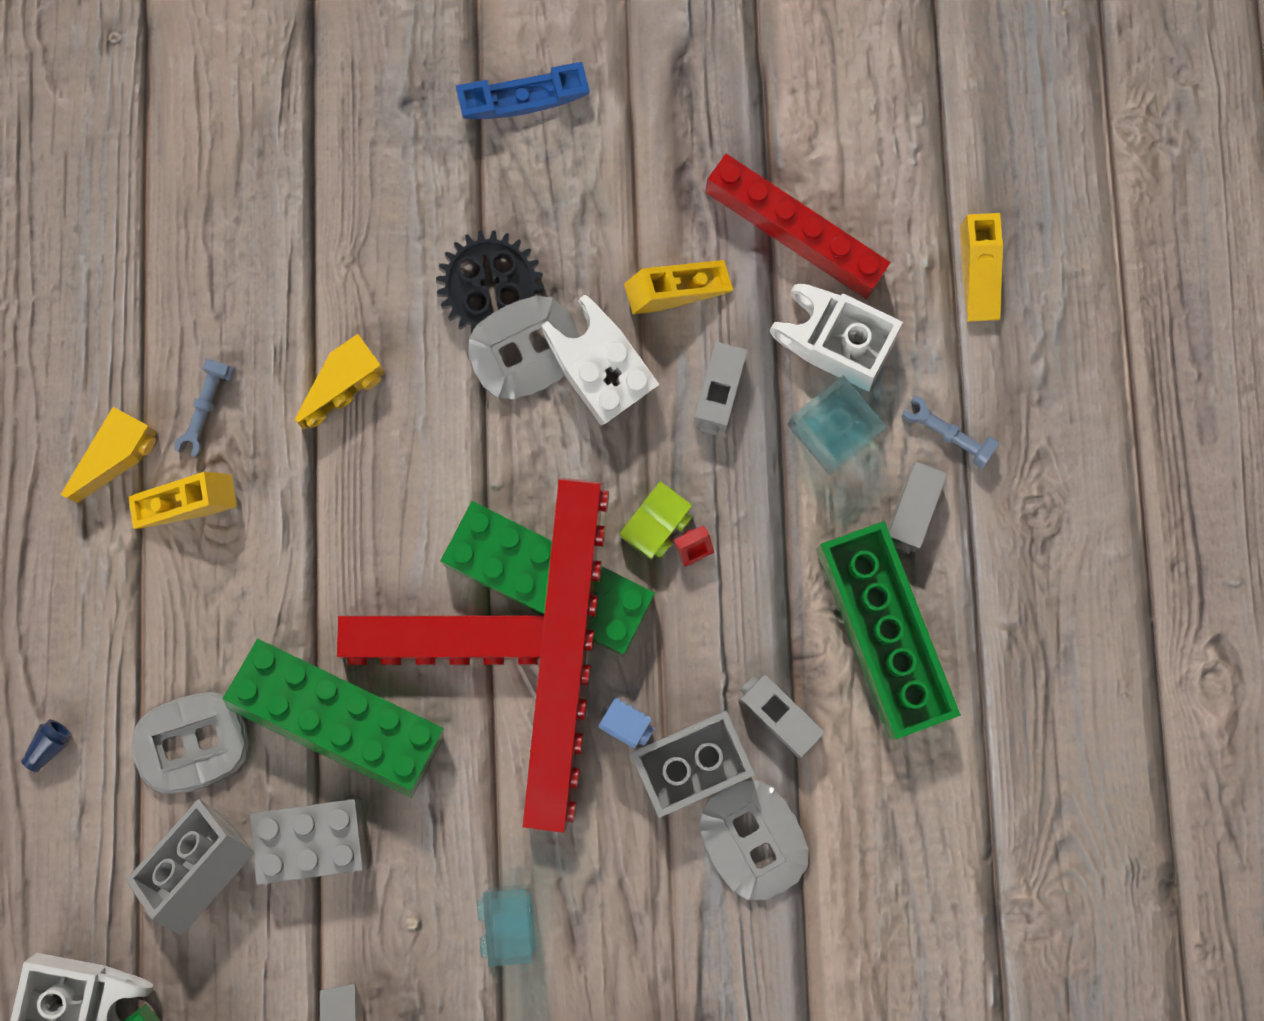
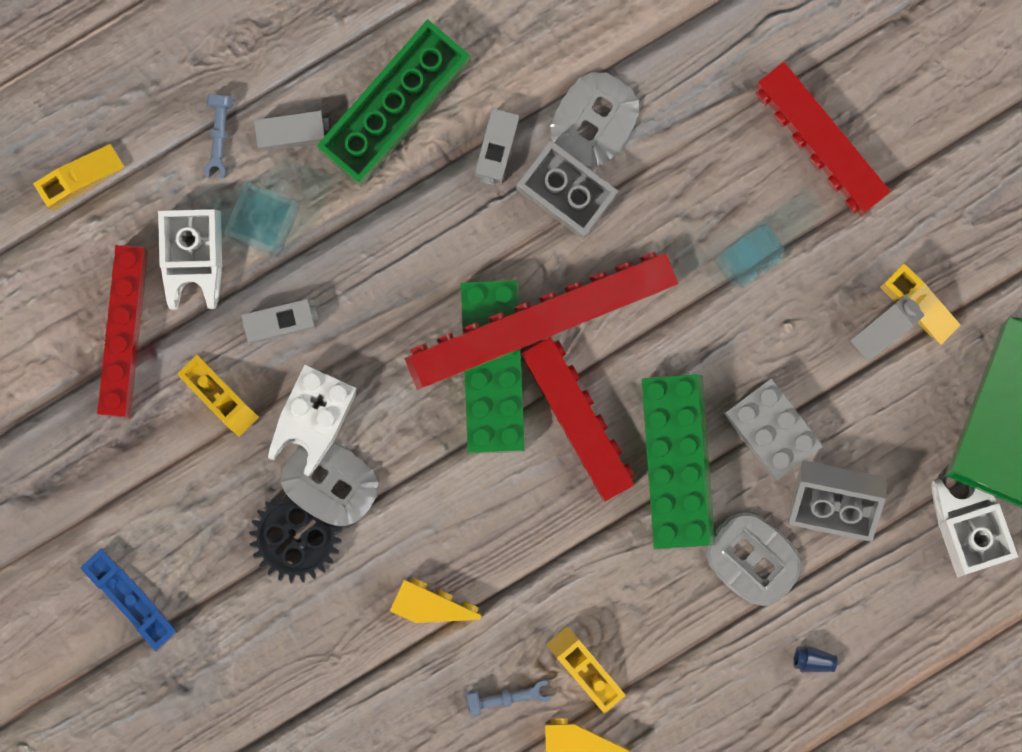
camera: 120 degrees left, 5 degrees up
(626, 724) = (565, 251): medium blue brick -> none
(656, 521) = (406, 312): lime brick -> none
(694, 545) = (408, 276): red plate -> none

